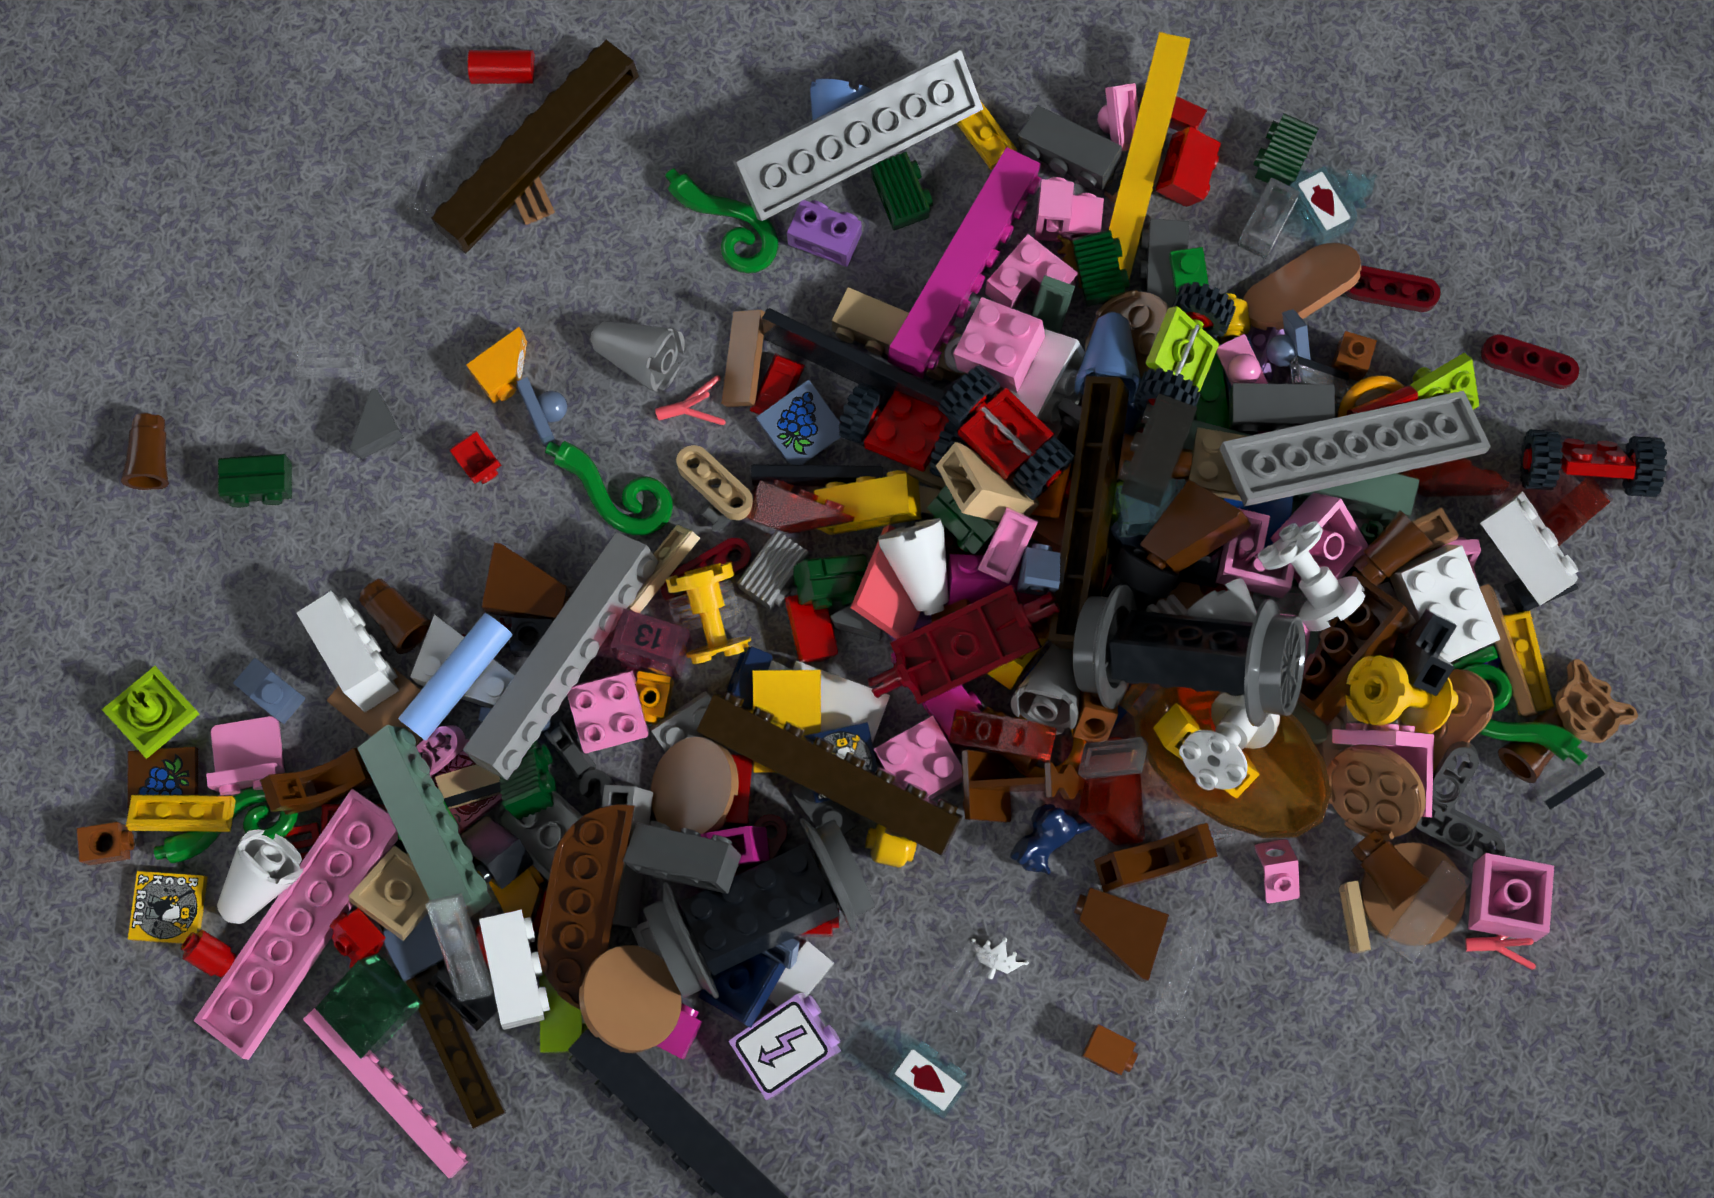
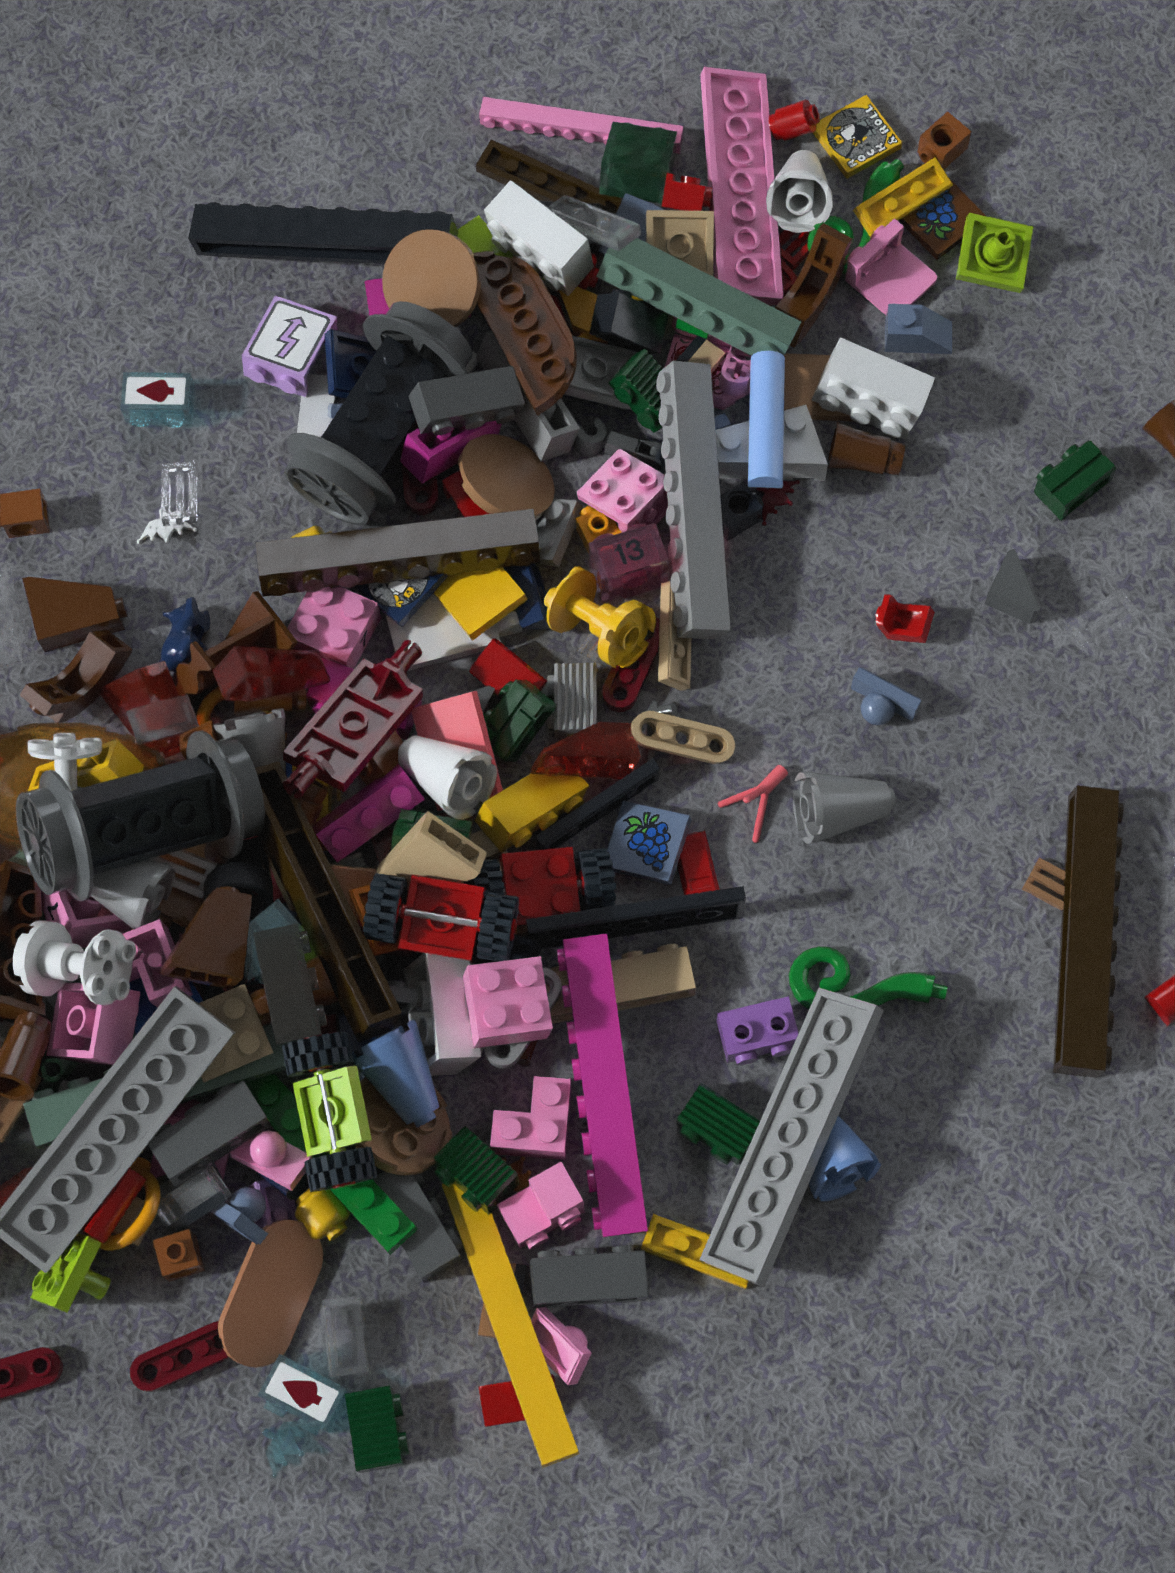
camera: 145 degrees right, 5 degrees down
(500, 366) = (948, 710): light orange slope -> none
(520, 588) = (775, 544): reddish brown slope -> none
(579, 463) = (811, 679): green plant -> none
(743, 359) = (743, 867): medium nougat tile -> none
(1007, 545) = (372, 824): bright pink tile -> none
(1039, 570) = (326, 815): sand blue slope -> none
(1053, 303) = (494, 1098): sand green tile -> none
(1188, 167) = (459, 1340): red brick -> none

